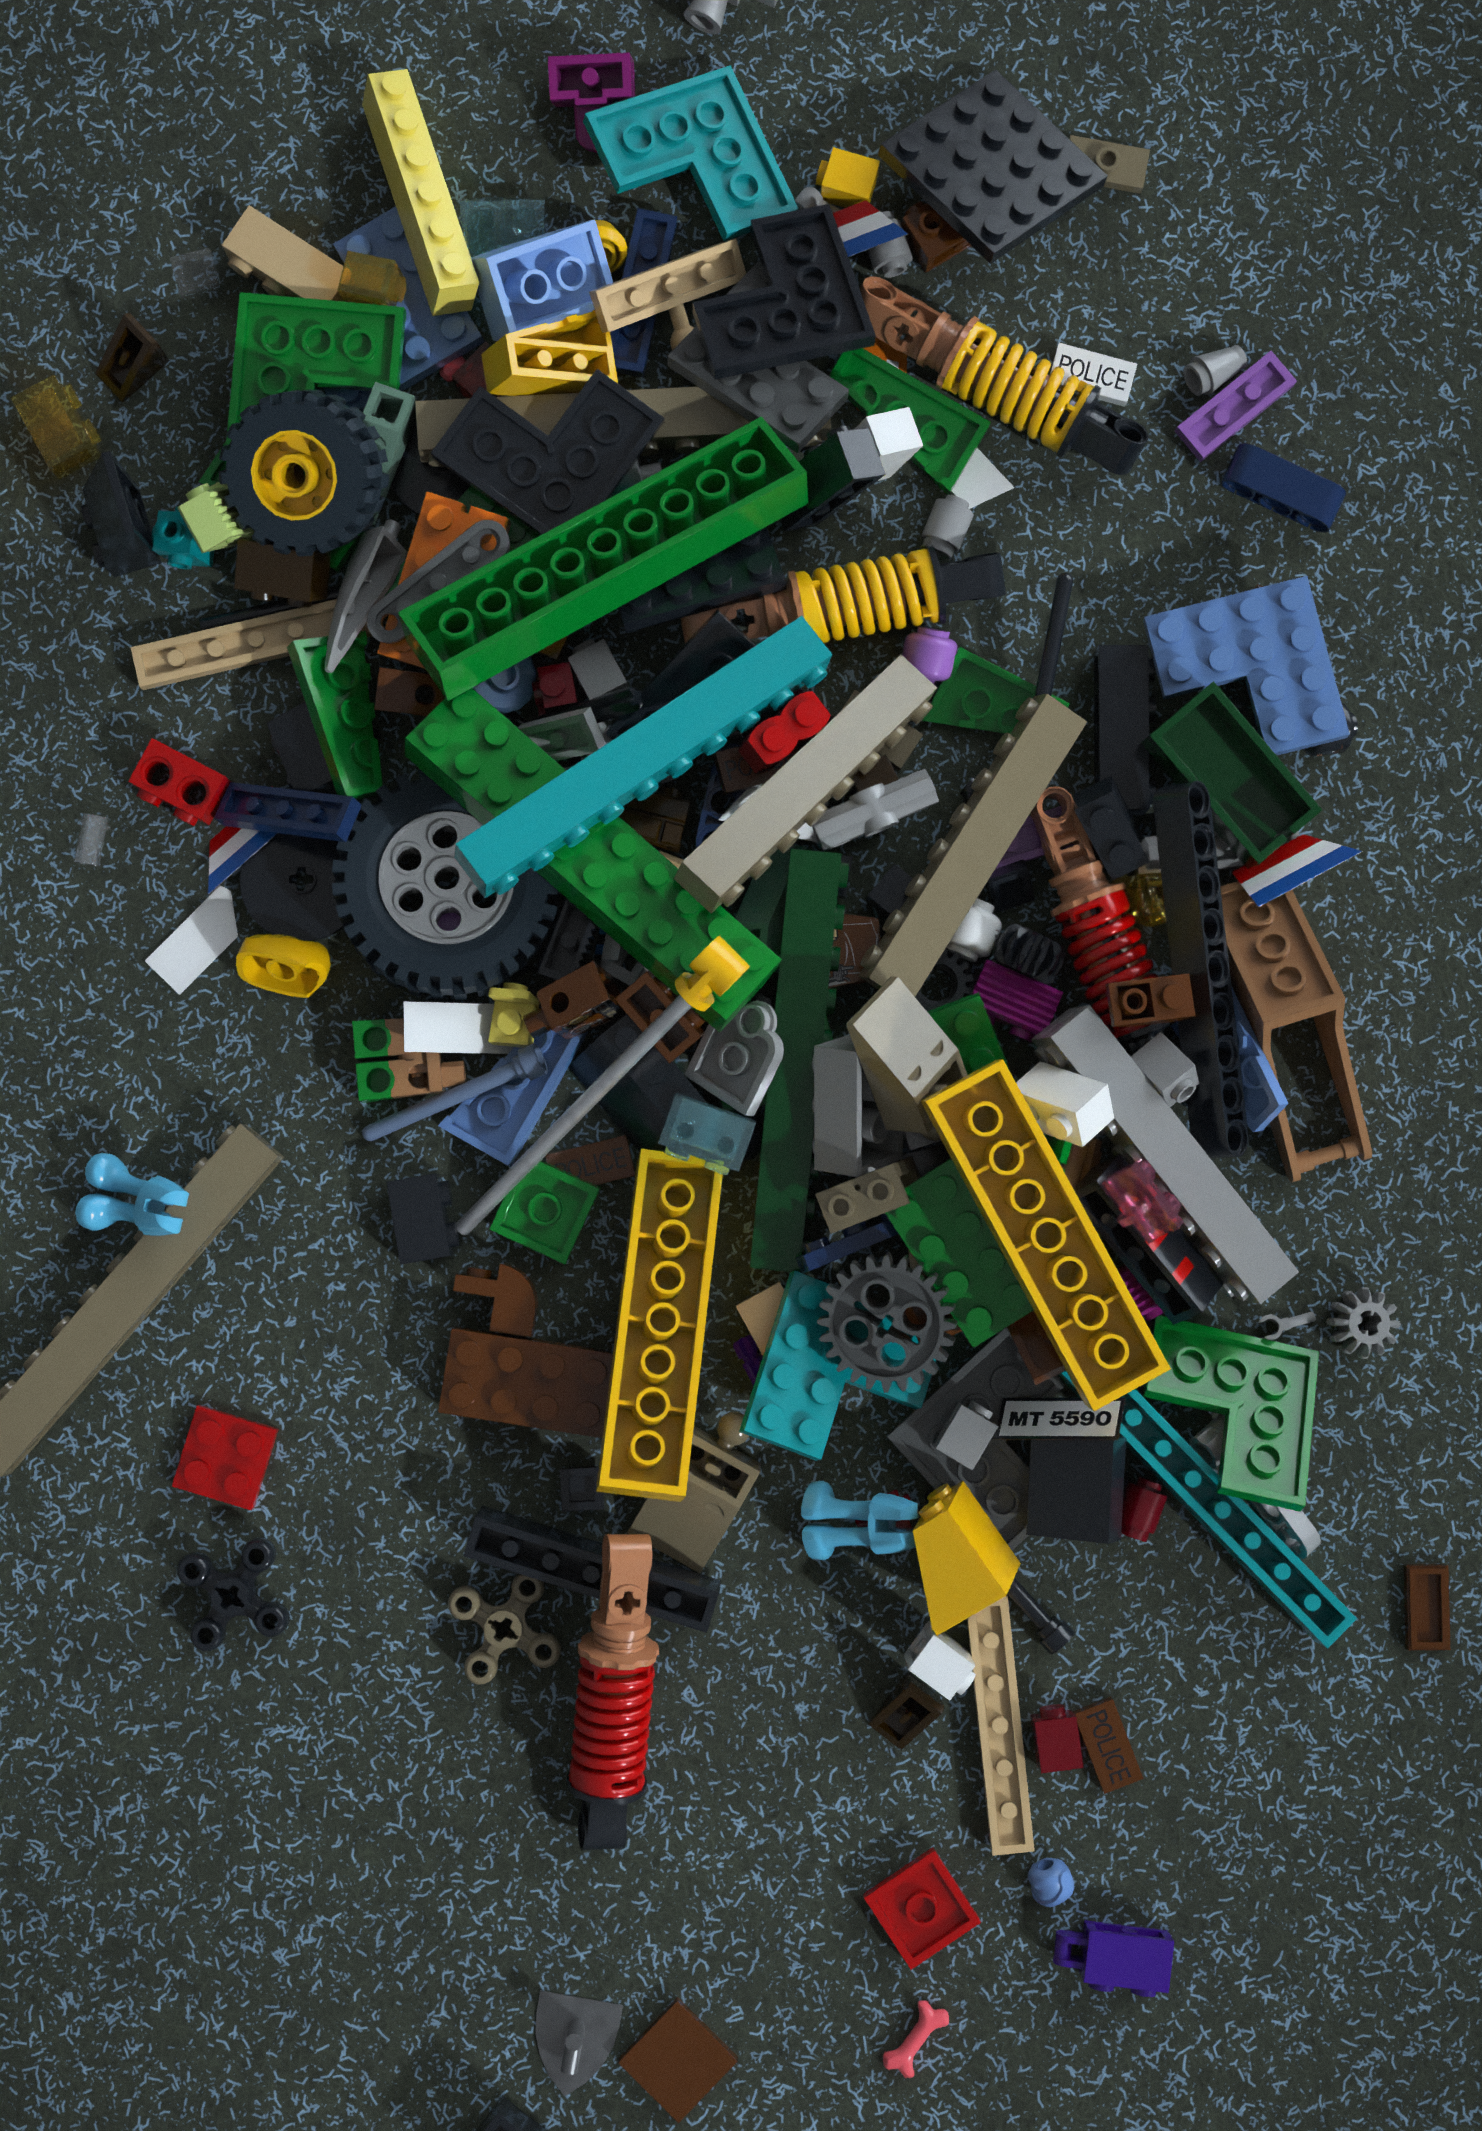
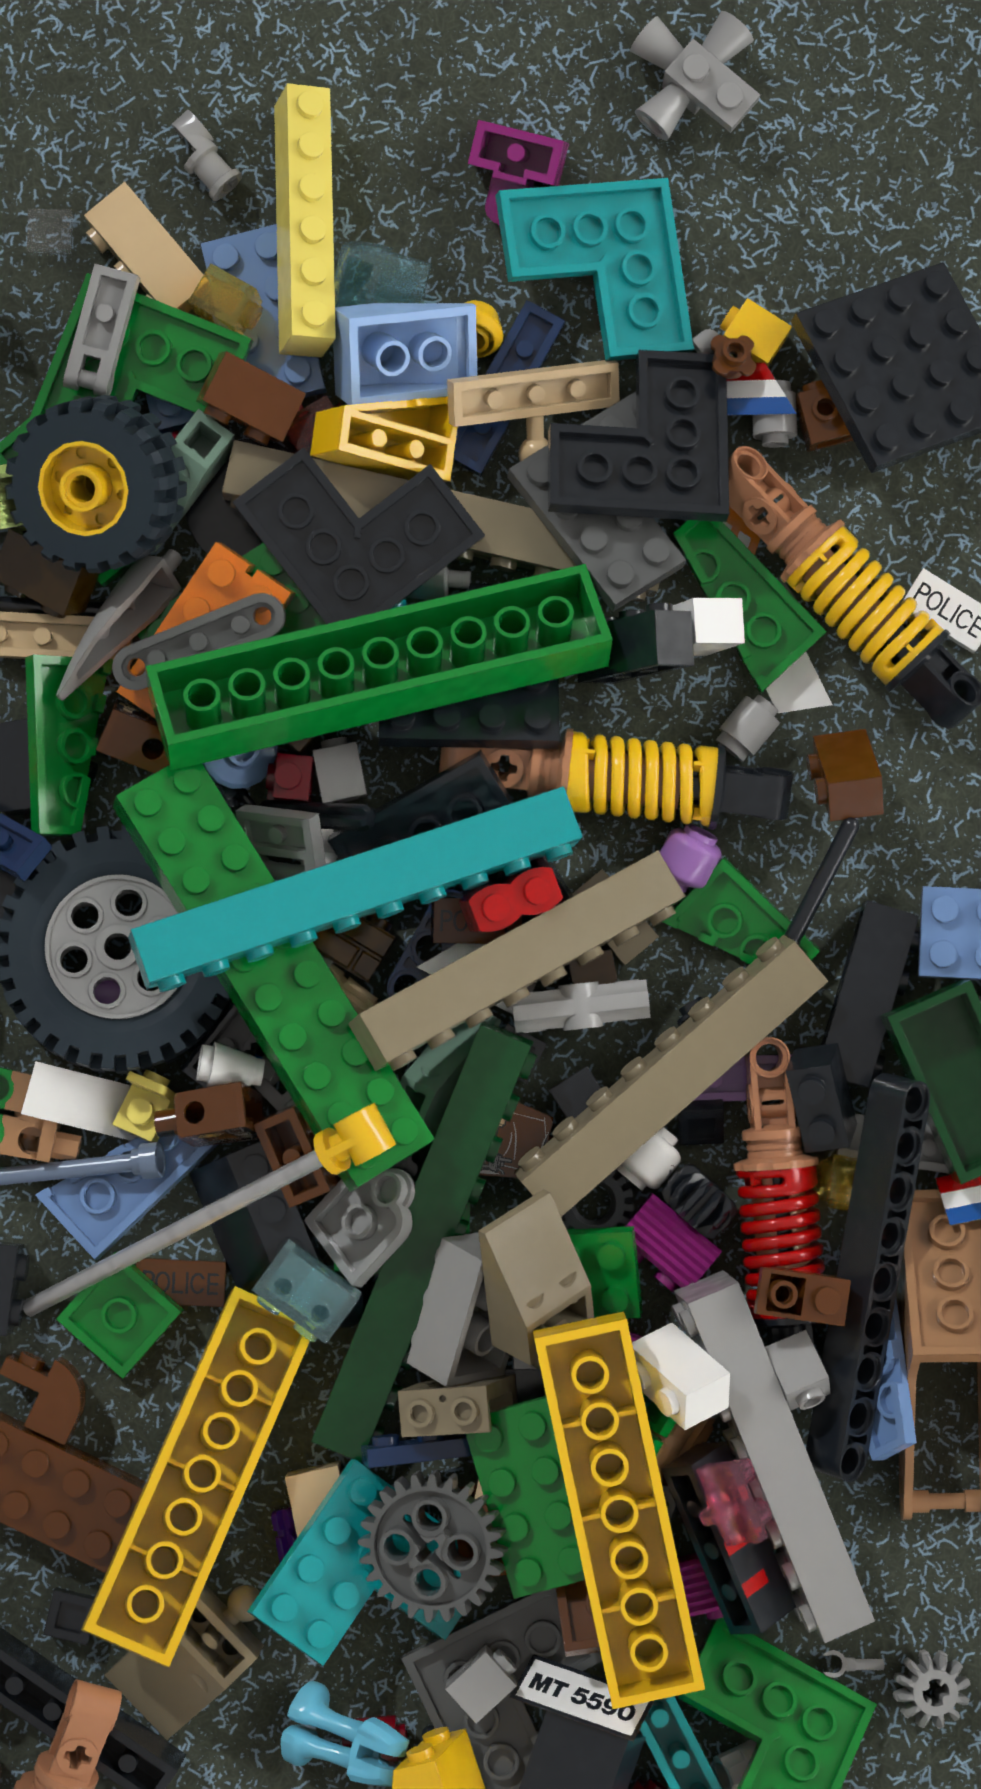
camera: 20 degrees right, 0 degrees up
(267, 335) = (101, 329): none -> light grey plate
(314, 168) = (205, 160): none -> light grey connector
(419, 358) = (249, 398): none -> reddish brown brick
(574, 952) = (227, 1065): none -> white cone
(836, 201) = (728, 366): none -> reddish brown plate
(1047, 539) = (846, 775): none -> reddish brown brick

